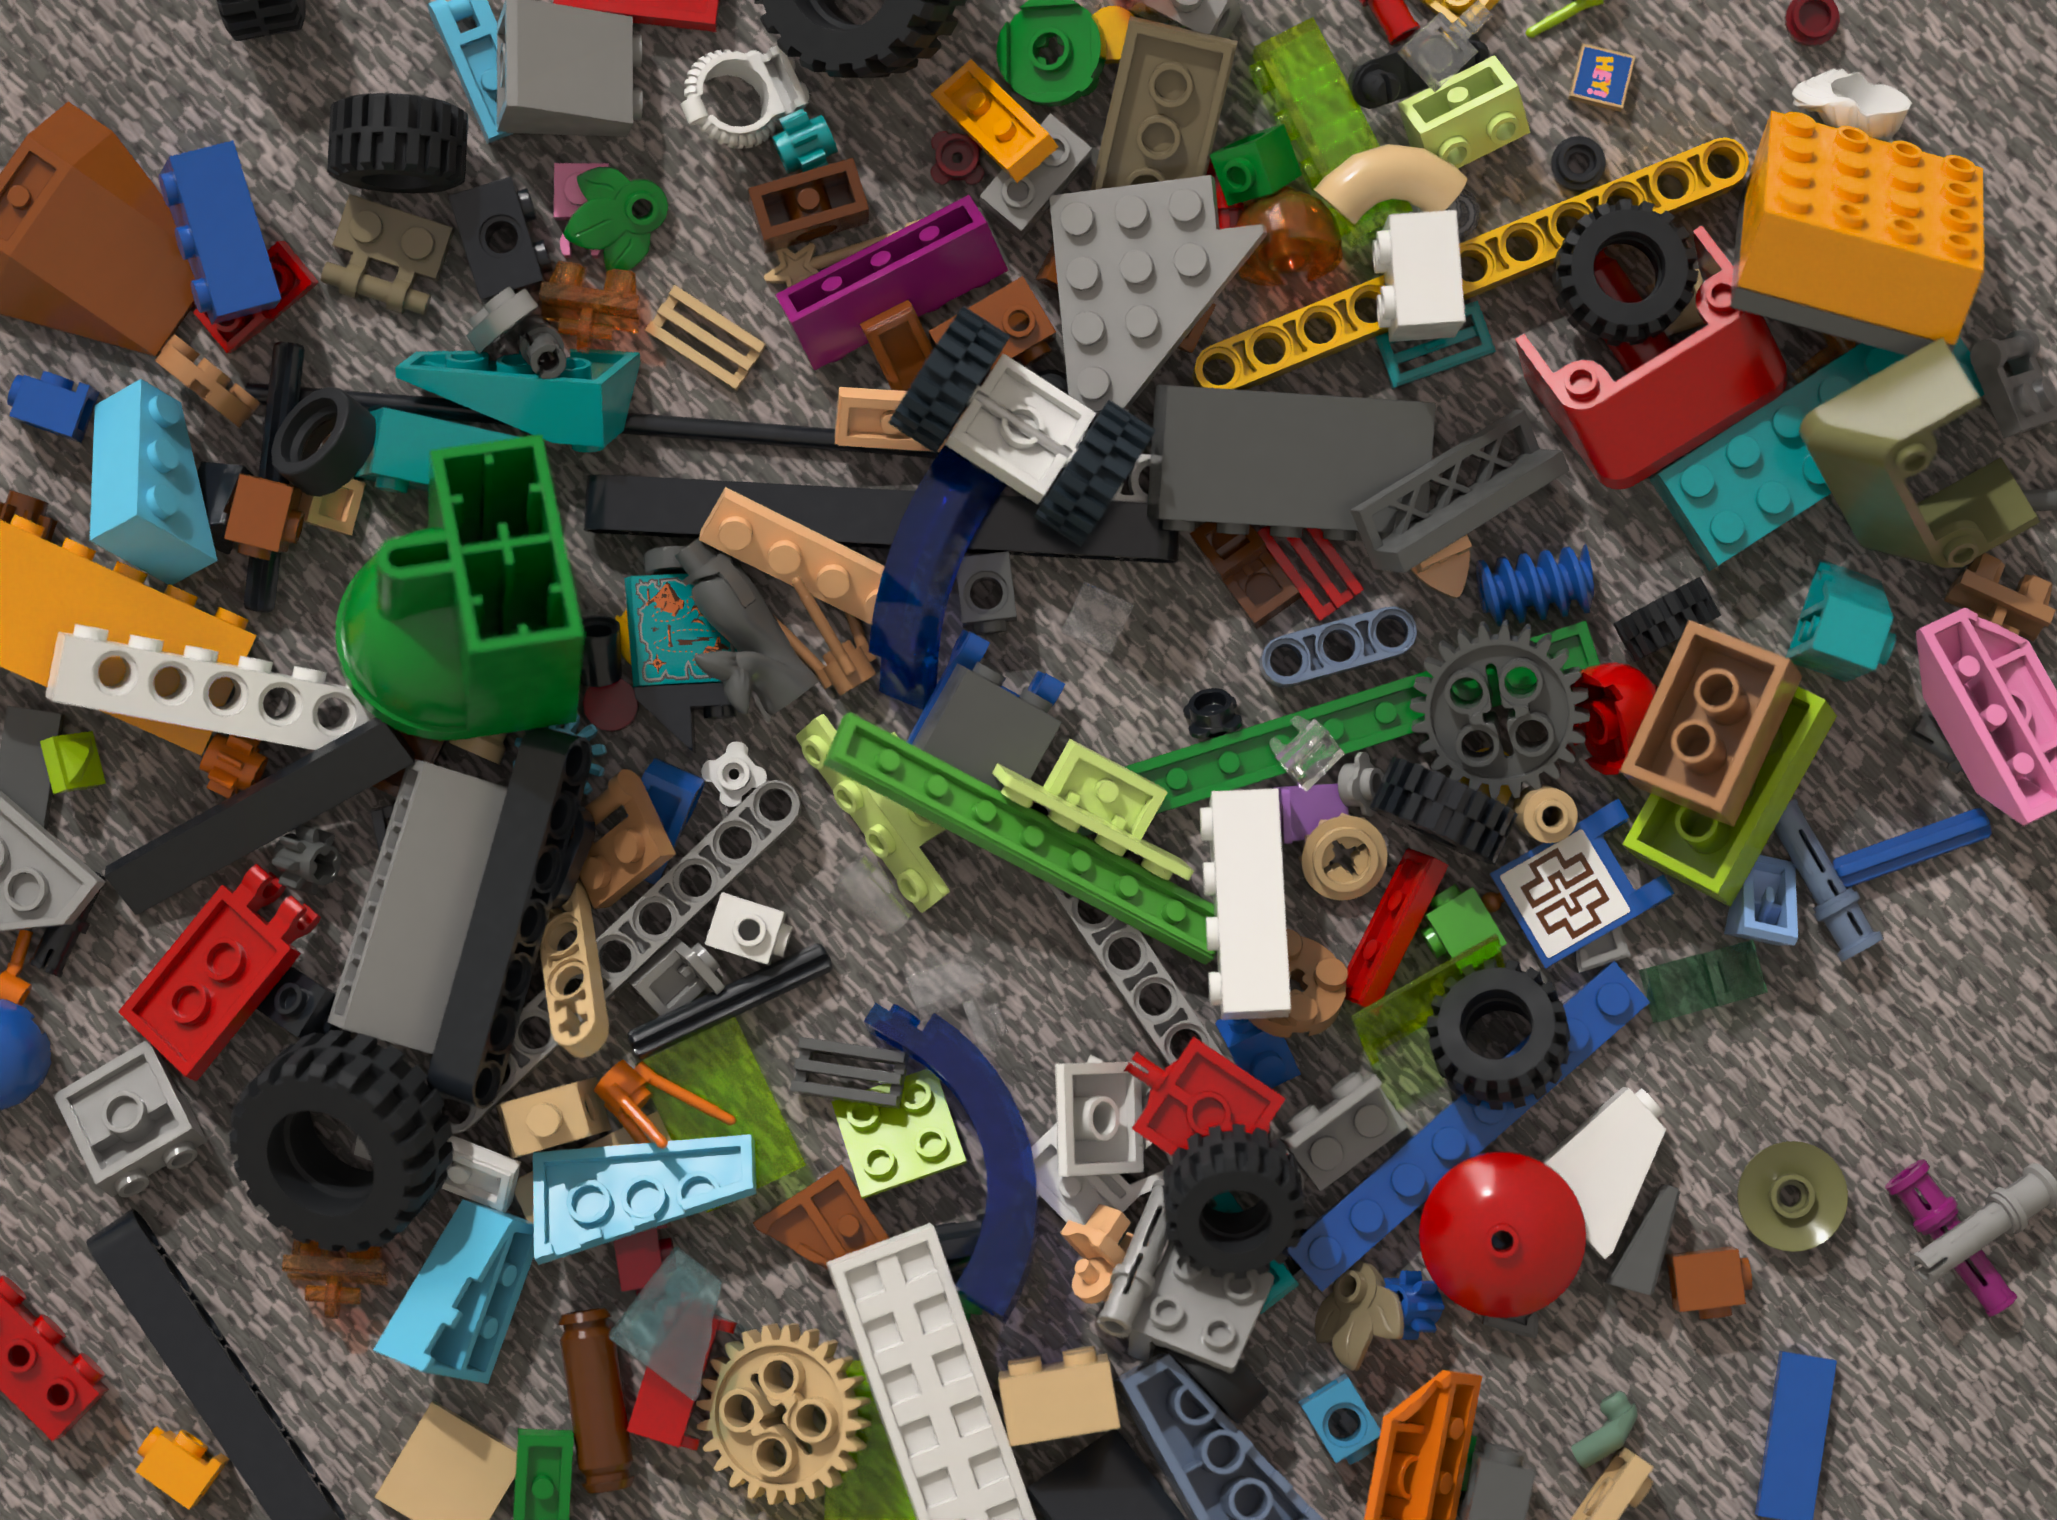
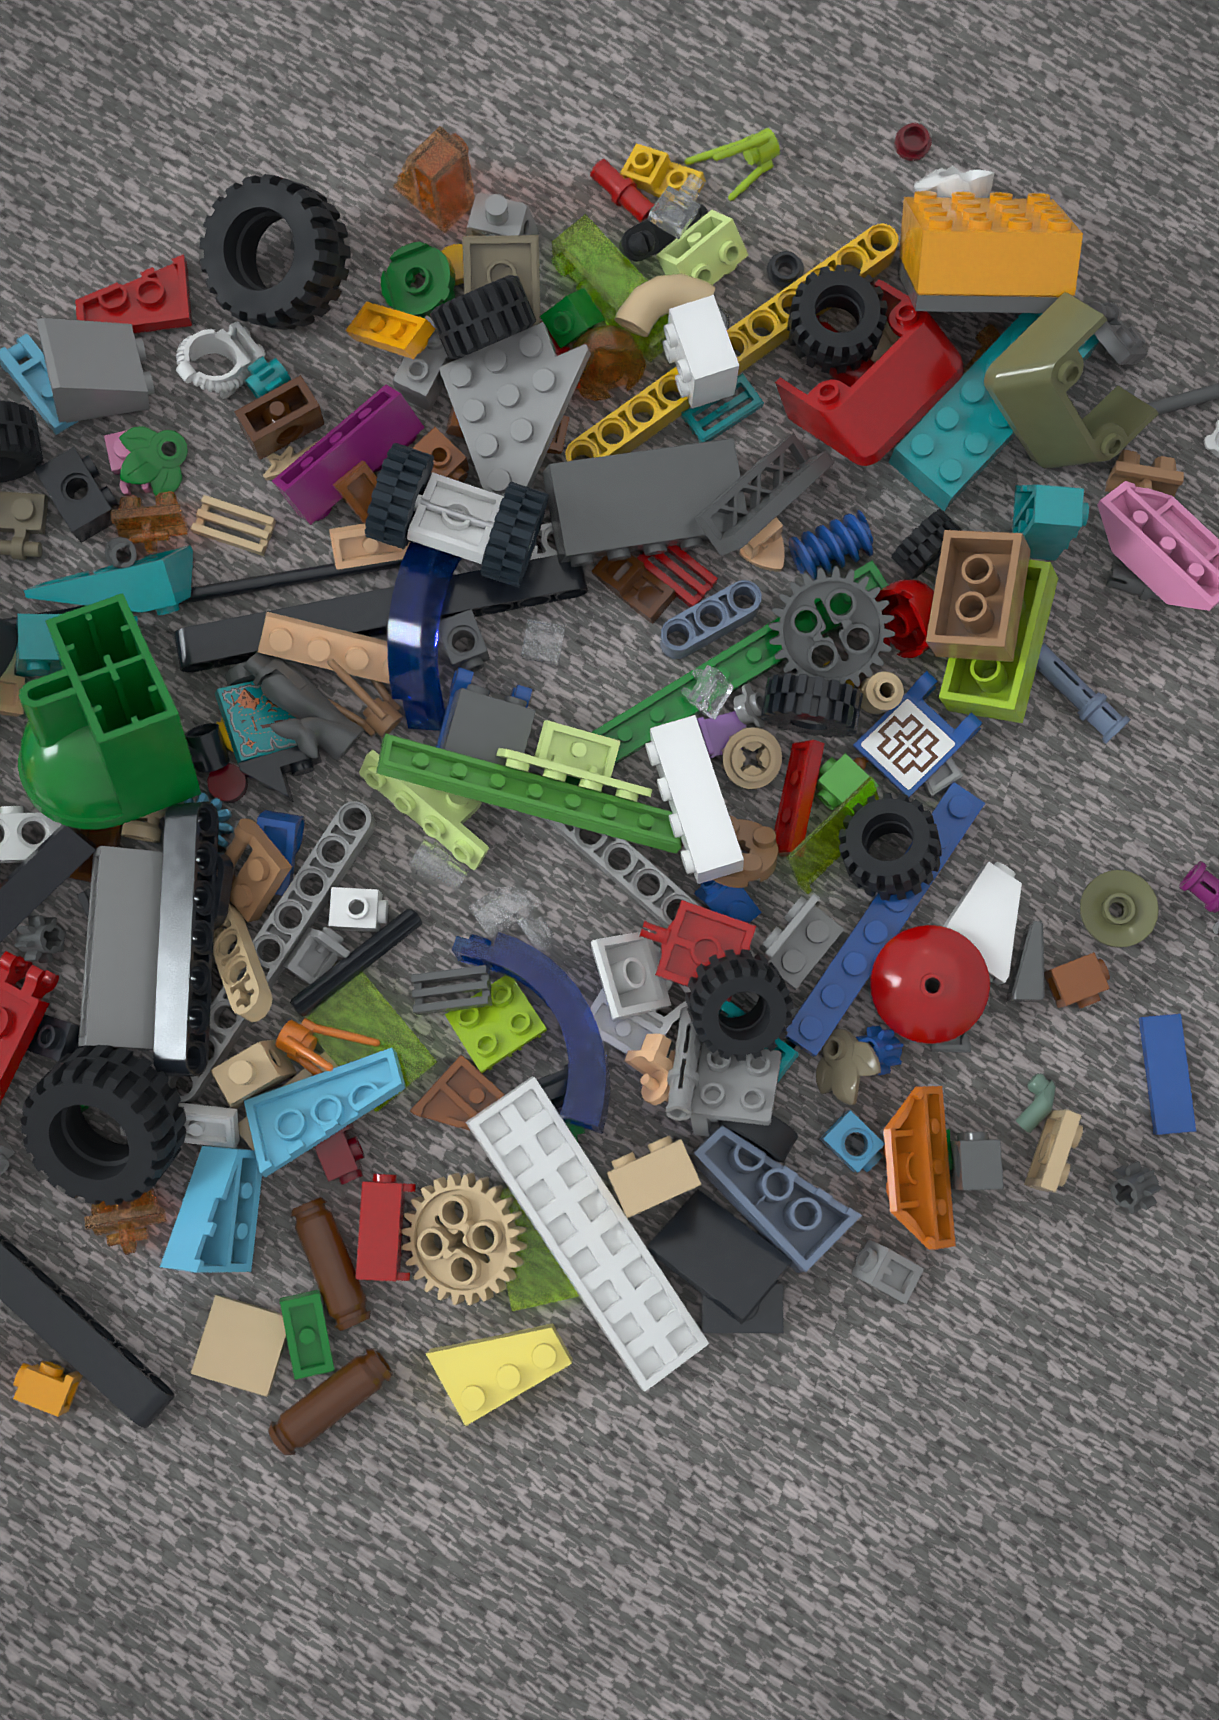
camera: 10 degrees left, 5 degrees down
(499, 317) = (89, 541): light grey plate -> none
(672, 1321) = (368, 1192): clear light blue wing -> none
(718, 773) = (311, 808): white plate -> none
(946, 169) = (370, 357): dark red plate -> none
(1128, 151) = (483, 317): none -> black tyre
(1212, 713) = (637, 685): black plate -> none
(1601, 77) = (785, 213): tile -> none
(1703, 981) = (1016, 780): clear green slope -> none
(1766, 904) = (1046, 719): light blue slope -> none
(1913, 847) = (1132, 655): blue axle -> none

